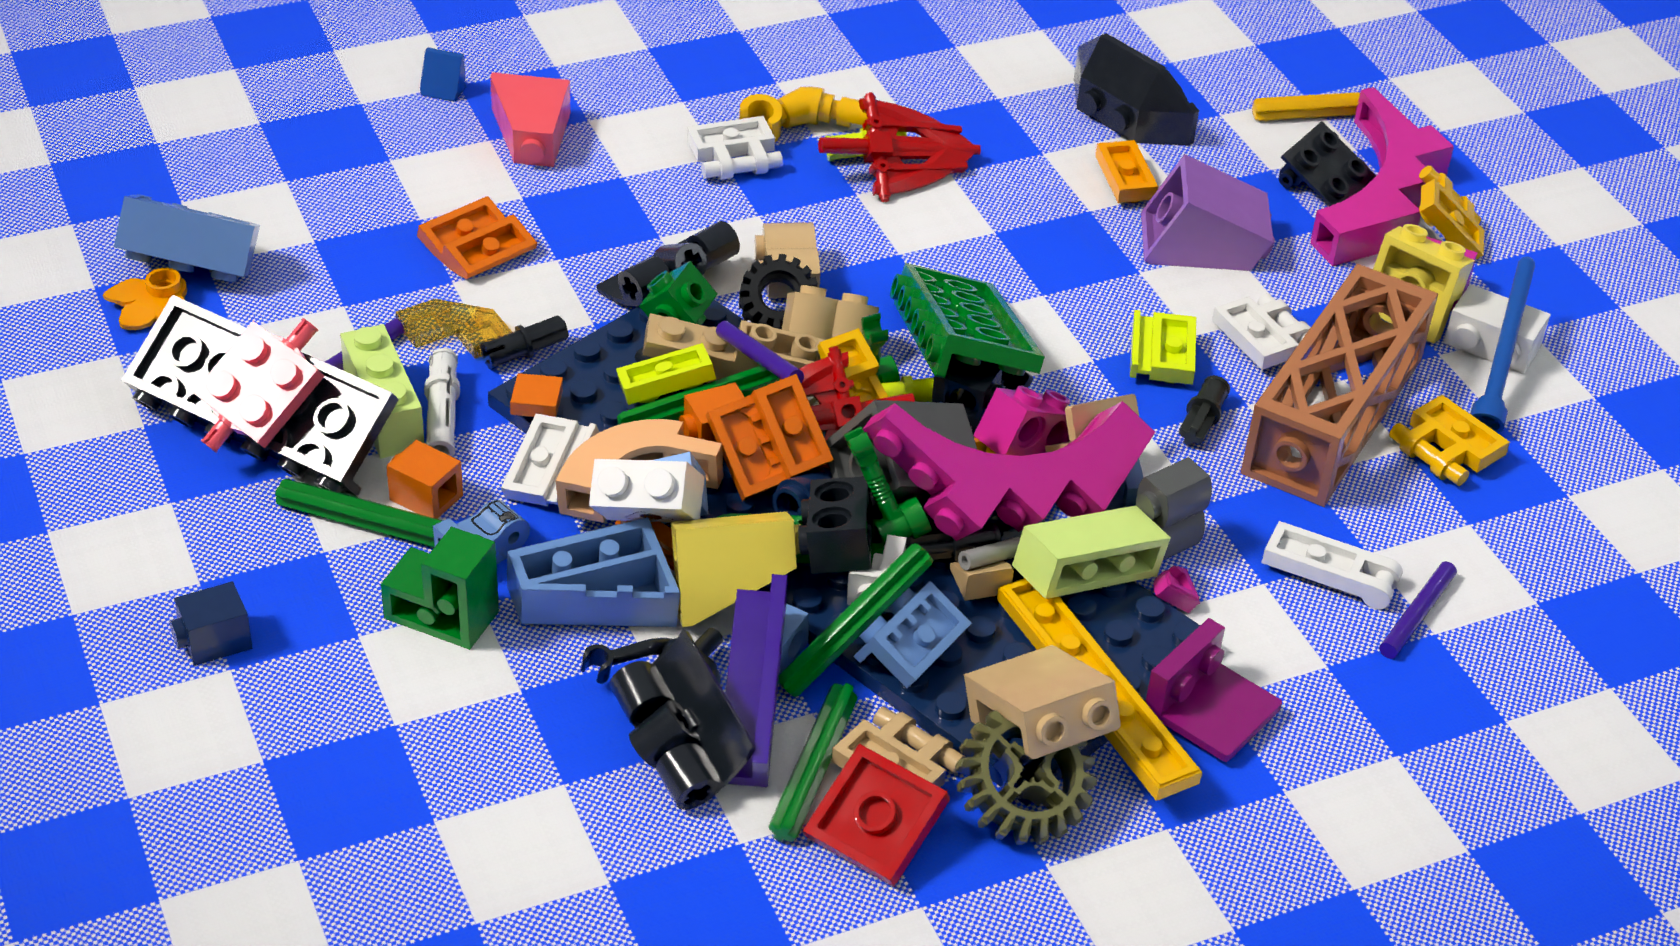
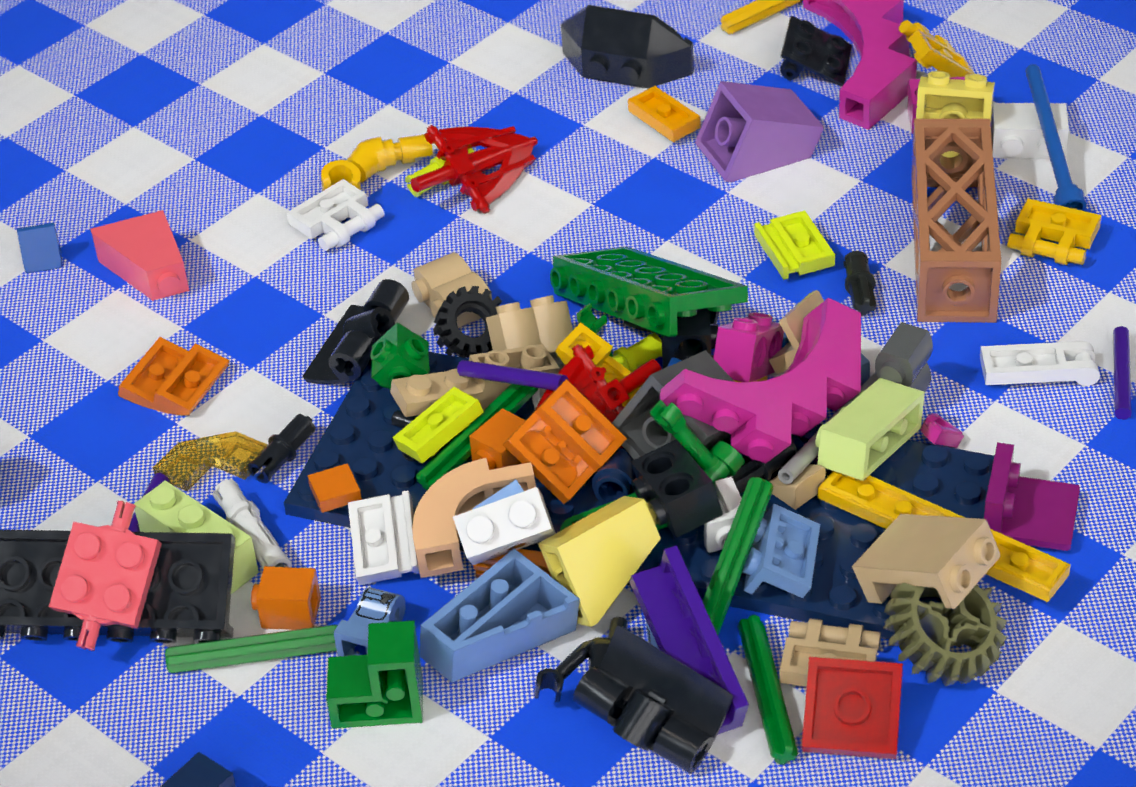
camera: 20 degrees left, 0 degrees up
(1261, 329) = (860, 200): white plate -> none

